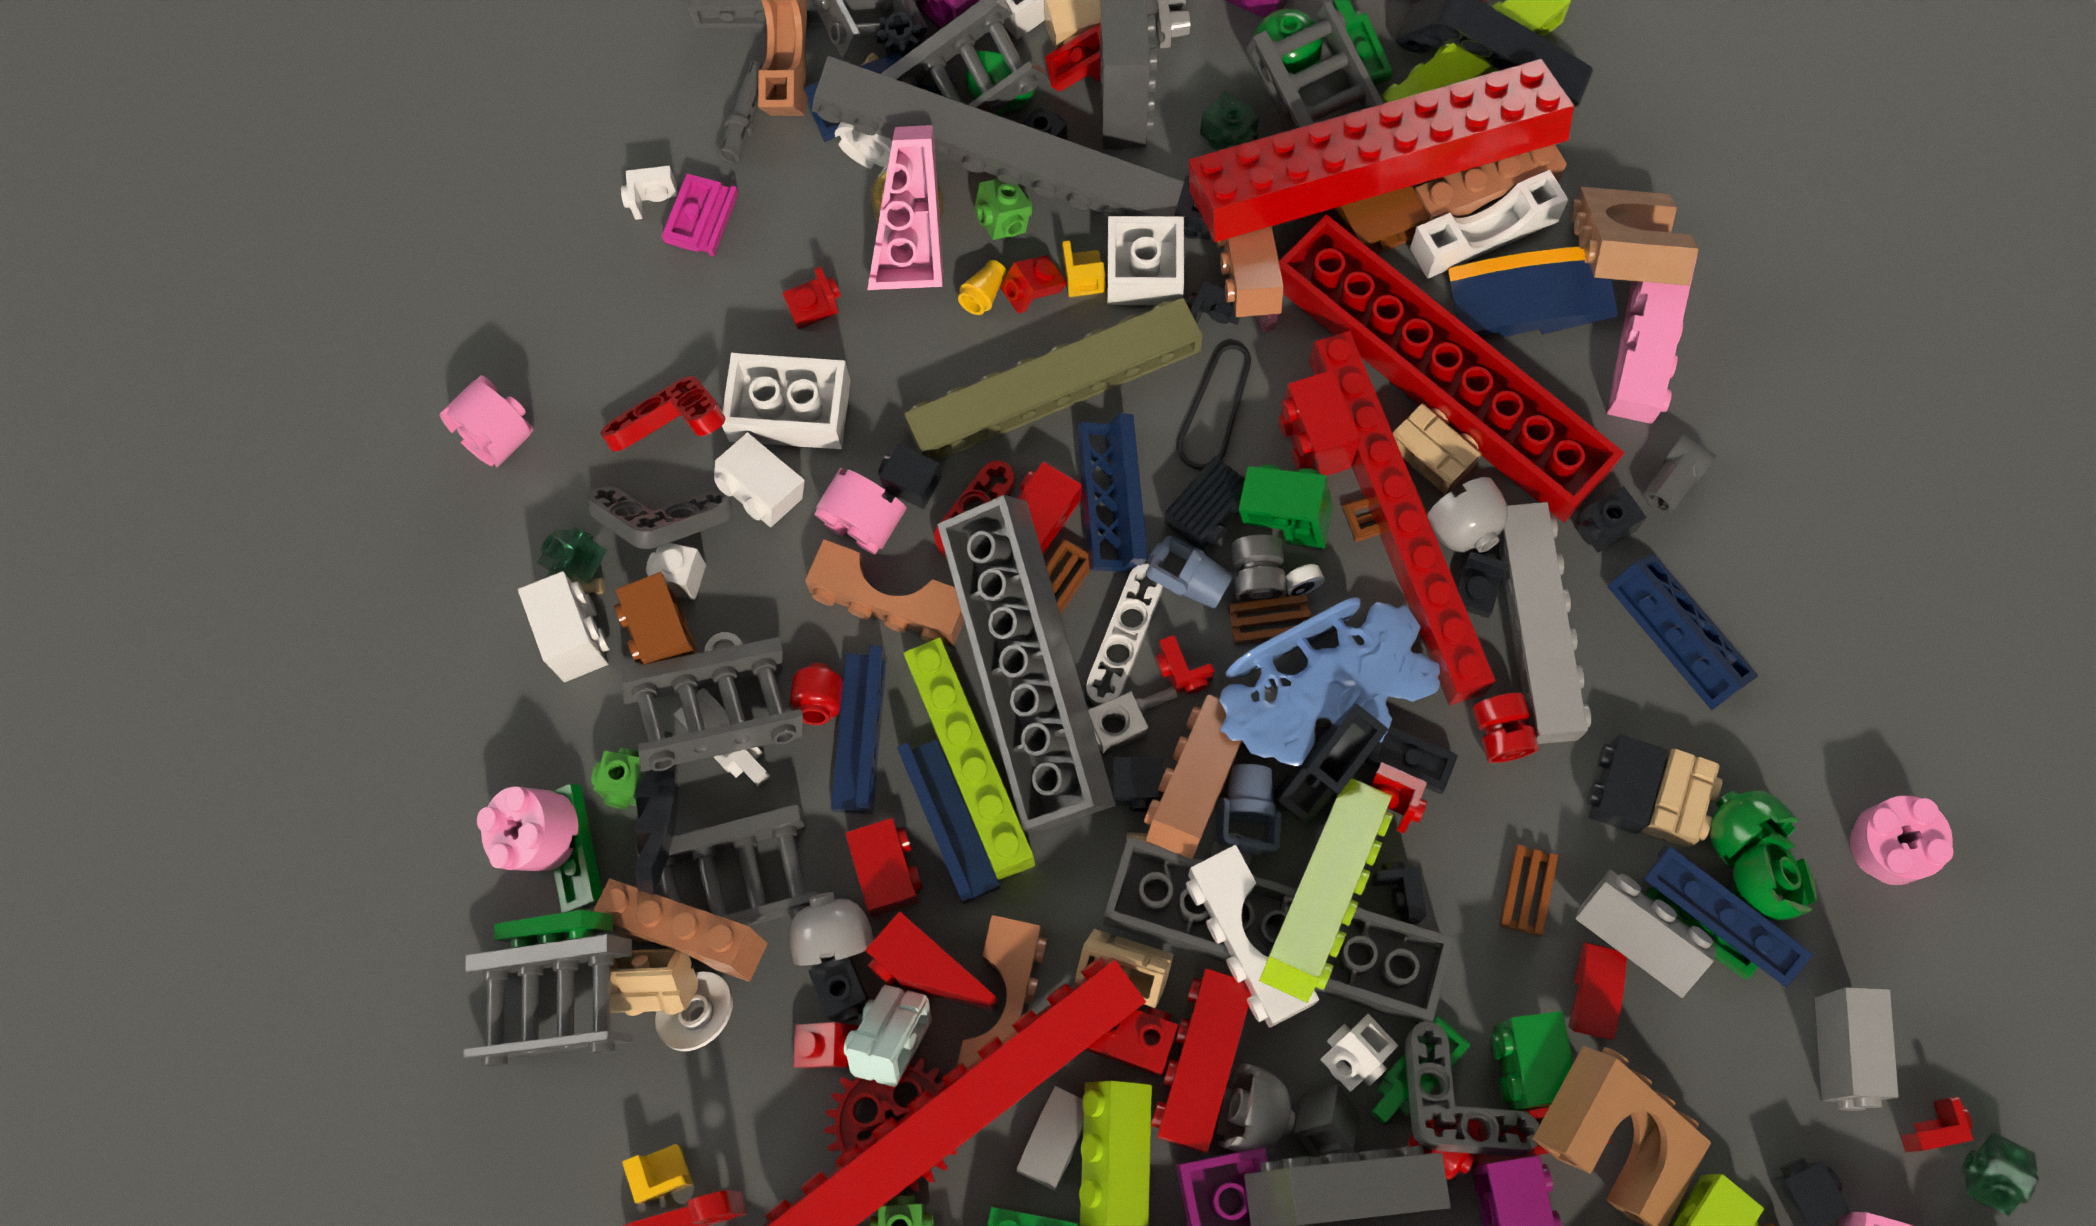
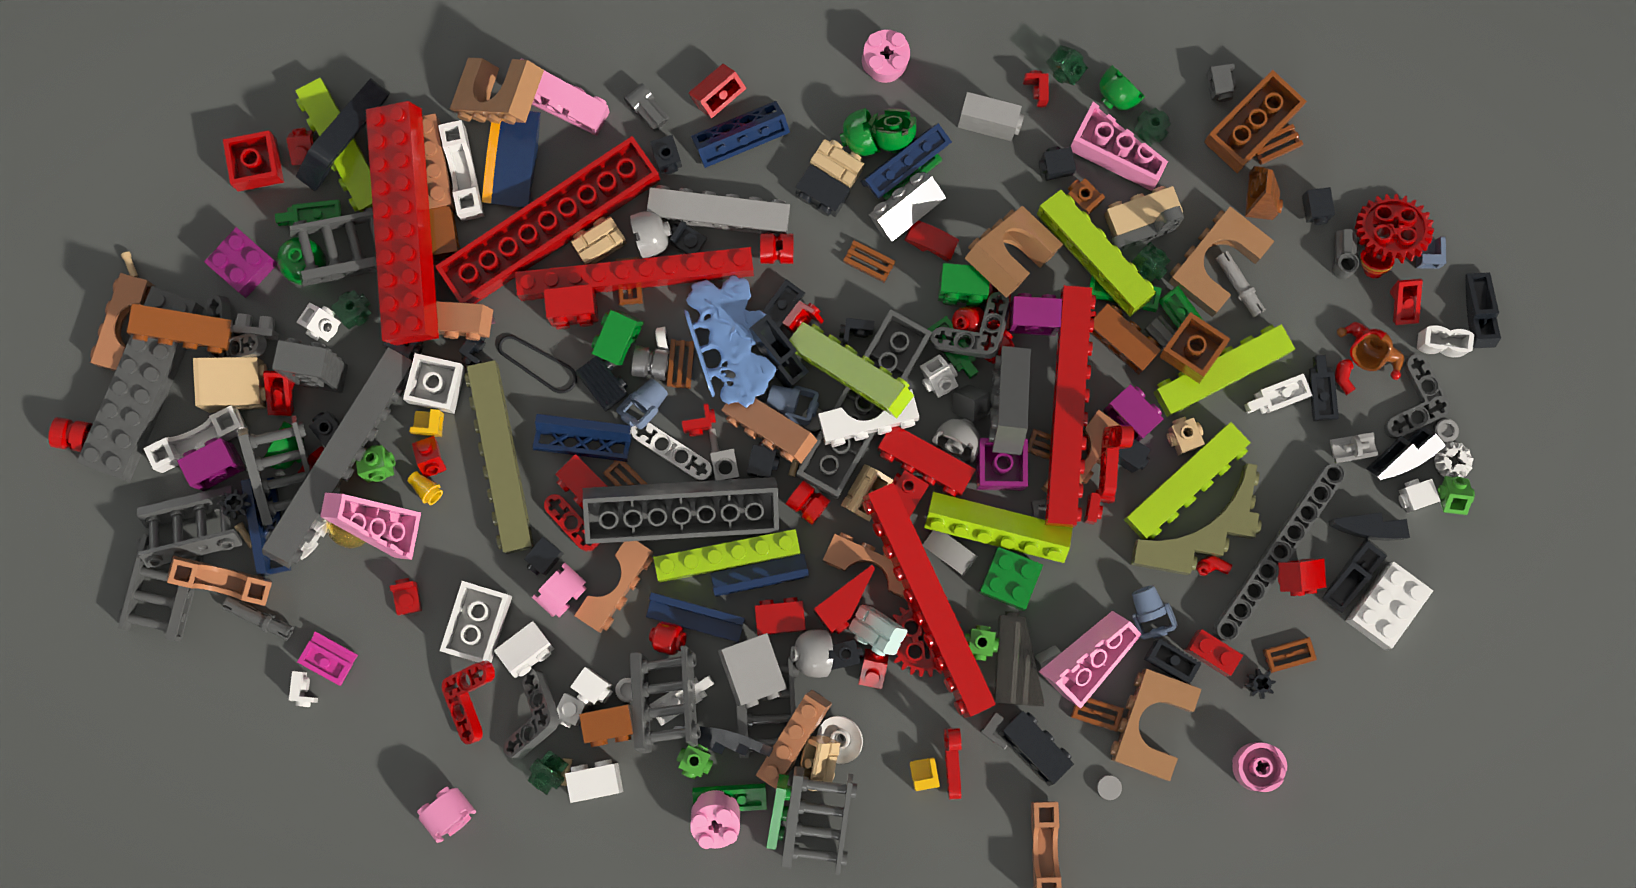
camera: 85 degrees left, 10 degrees up
(714, 590) = (592, 687): none -> white brick
(779, 834) = (752, 671): none -> light grey brick
(1086, 871) = (807, 502): none -> red wheel
(1199, 74) = (319, 322): none -> white brick
(1475, 1083) = (968, 318): none -> red head
(1744, 574) = (717, 90): none -> red brick

